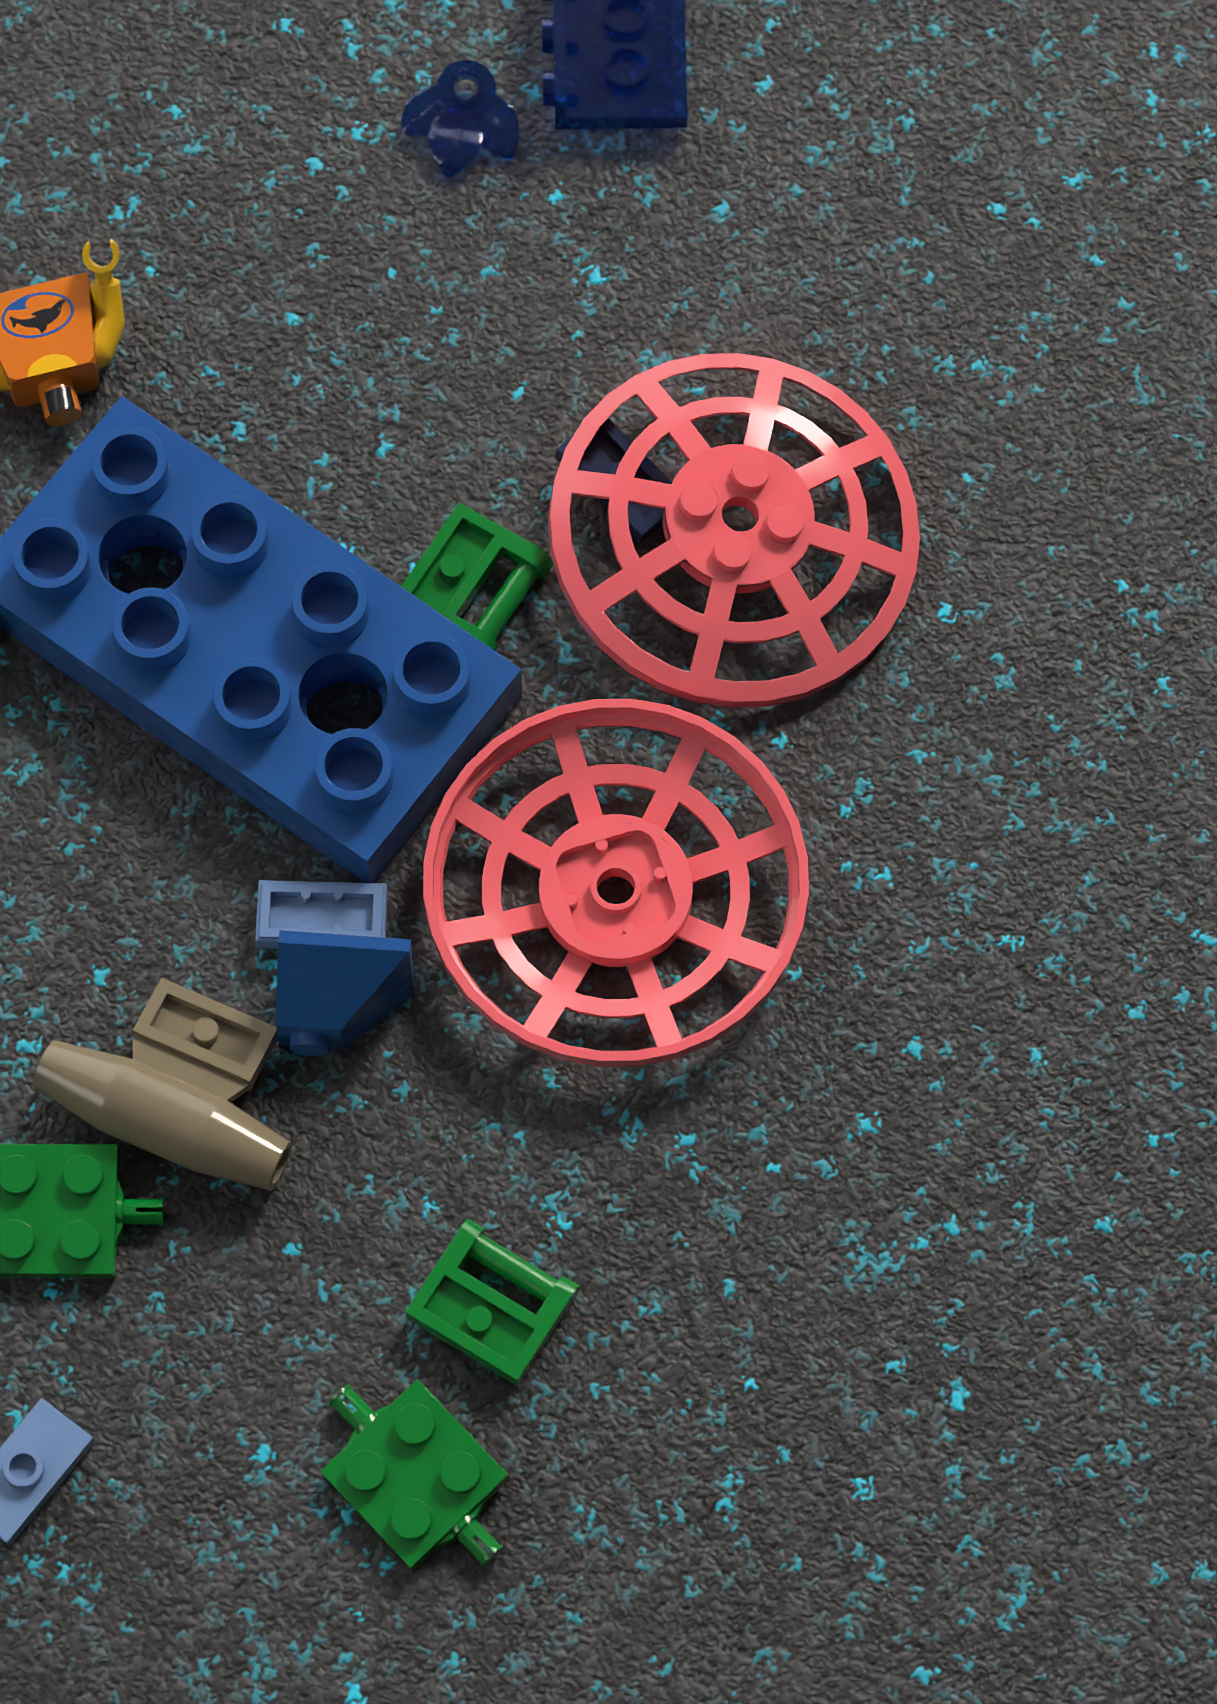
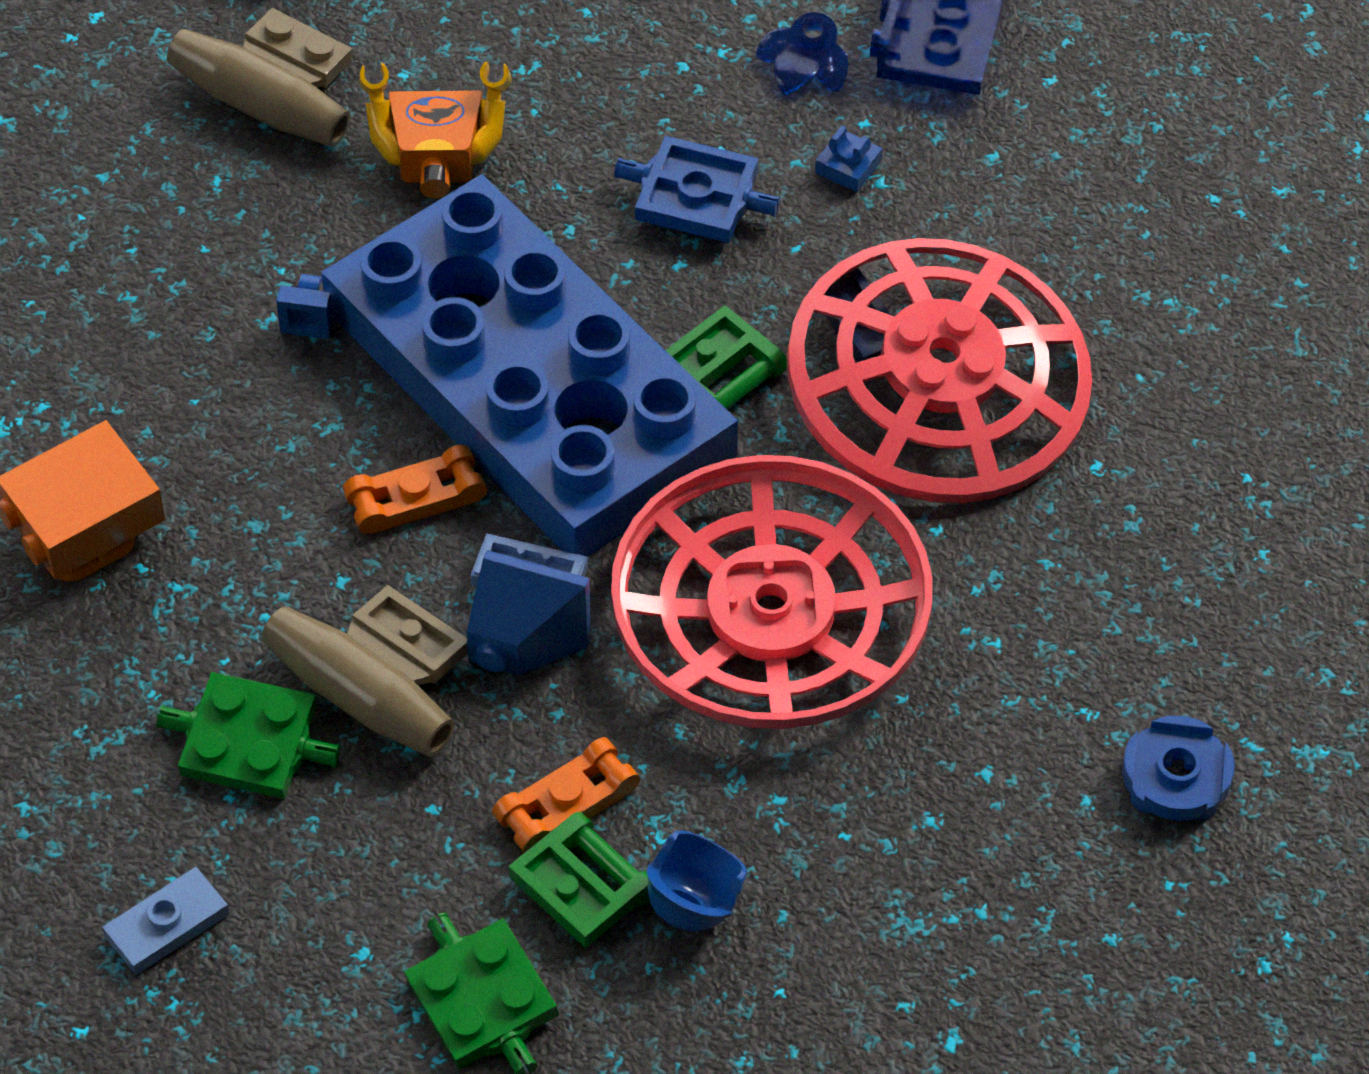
camera: 15 degrees right, 15 degrees down
(155, 837) = (415, 491): none -> orange plate
(381, 342) = (696, 188): none -> blue plate
(443, 1199) = (566, 793): none -> orange plate
(552, 257) = (848, 159): none -> blue tile
(627, 1283) = (694, 882): none -> blue helmet
(1156, 968) = (1174, 796): none -> blue plate

